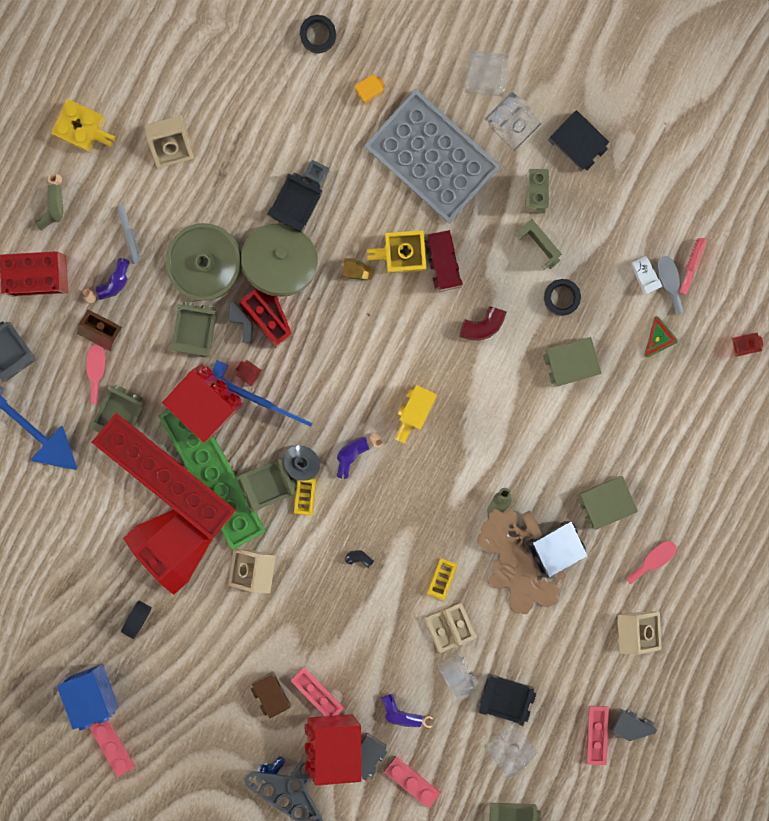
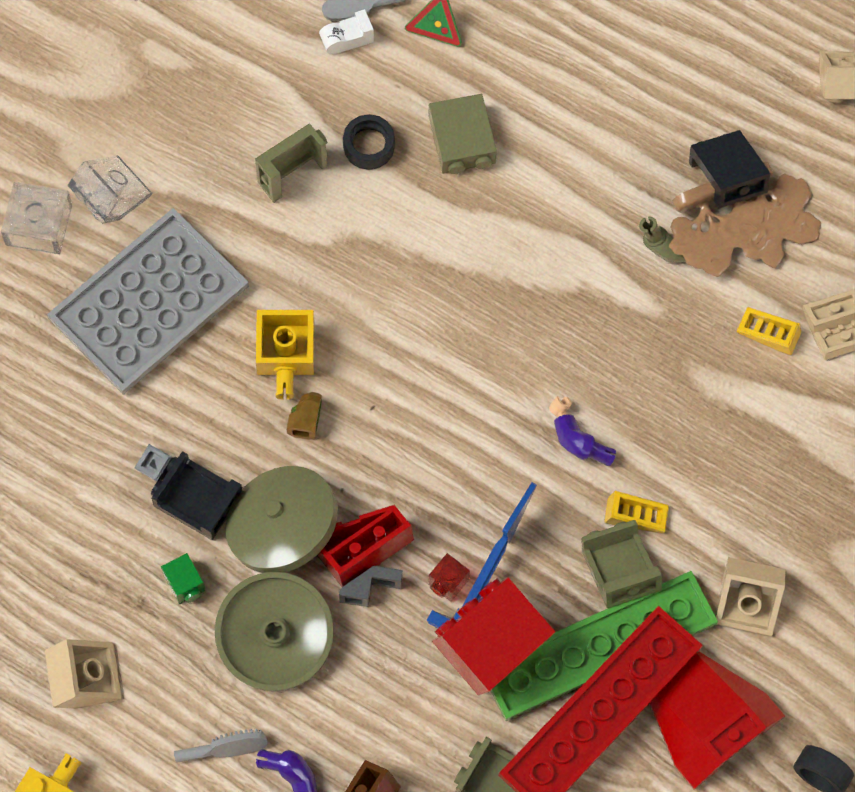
camera: 90 degrees left, 20 degrees down
(194, 329) = (376, 658): olive panel -> none
(236, 200) = (183, 579): none -> green brick
(306, 458) = (589, 511): dark grey dish -> none
(358, 556) = (732, 443): black arm -> none
(370, 88) = (39, 378): light orange brick -> none
(415, 411) = (519, 341): yellow brick -> none
(443, 261) = (315, 289): dark red wedge -> none
(484, 329) = (406, 246): dark red cylinder -> none
(537, 190) = (214, 157): olive panel -> none
(579, 141) = (147, 103): black panel -> none
(607, 503) = (664, 102): olive brick -> none
(655, 559) = (747, 50): coral piece -> none

